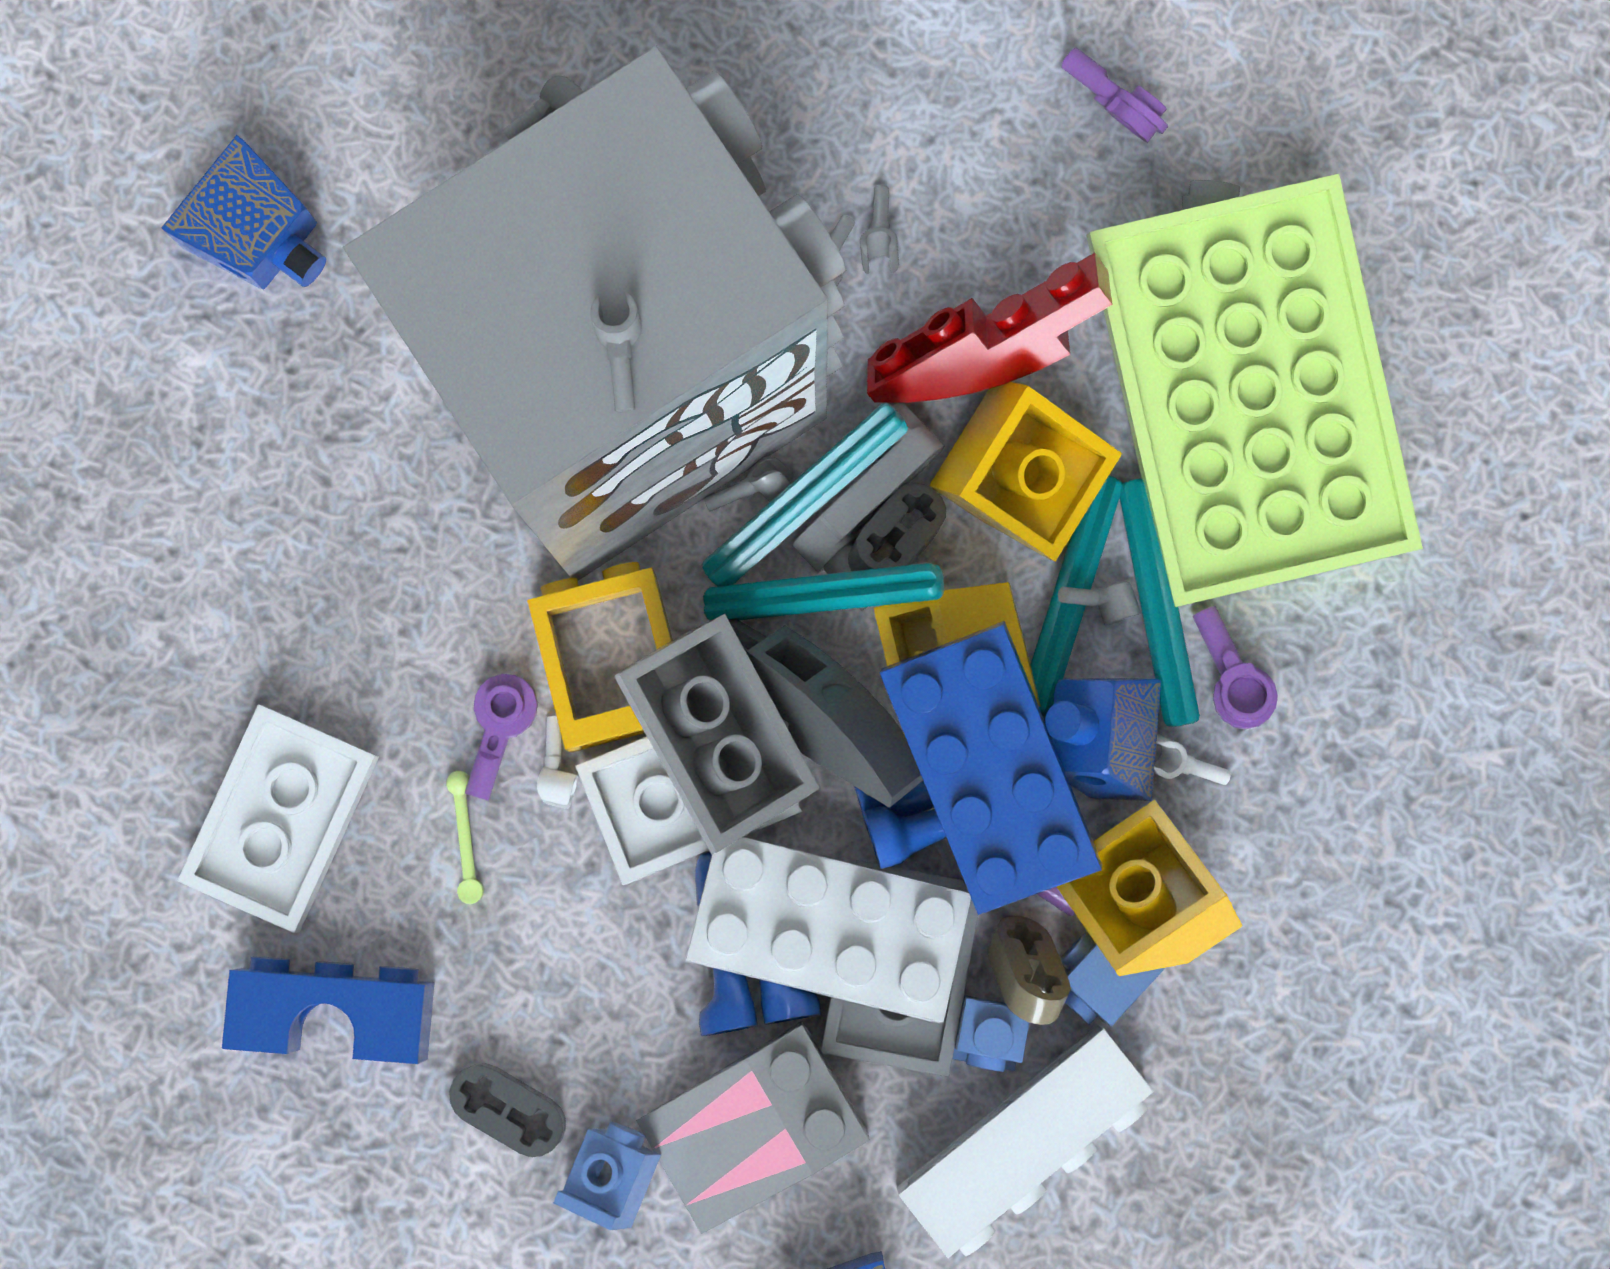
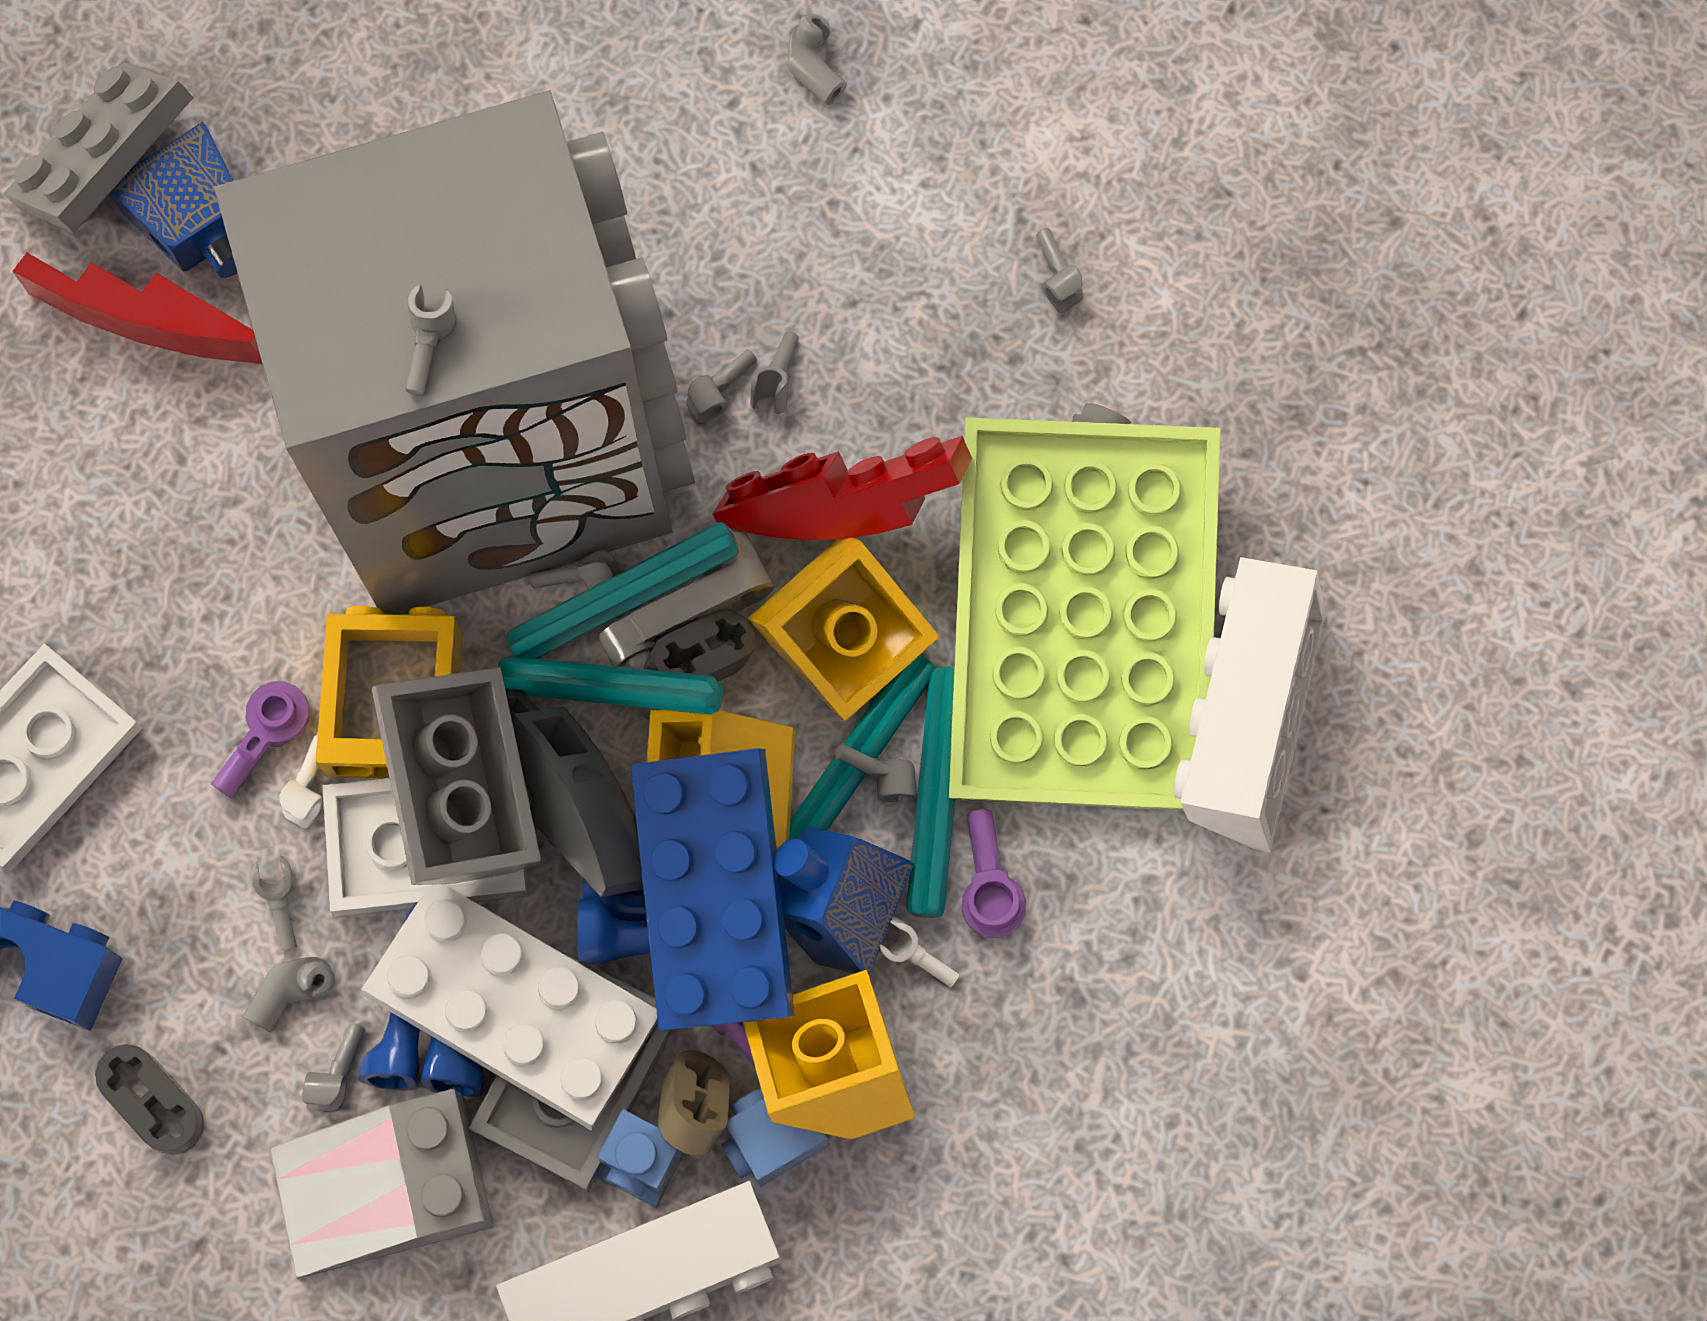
camera: 15 degrees right, 10 degrees down
(138, 187) = (97, 145): none -> light grey plate
(258, 345) = (157, 316): none -> red slope
(470, 889) = (186, 878): yellowish green hinge -> none
(563, 881) = (278, 902): none -> light grey hand
(602, 962) = (286, 984): none -> light grey arm
(632, 1170) = (224, 1190): medium blue brick -> none
(673, 1052) = (328, 1091): none -> light grey hand
(1135, 59) = (1065, 286): none -> light grey hand
(1136, 110) = (1054, 326): medium lavender plate -> none
(1443, 433) = (1252, 702): none -> white slope

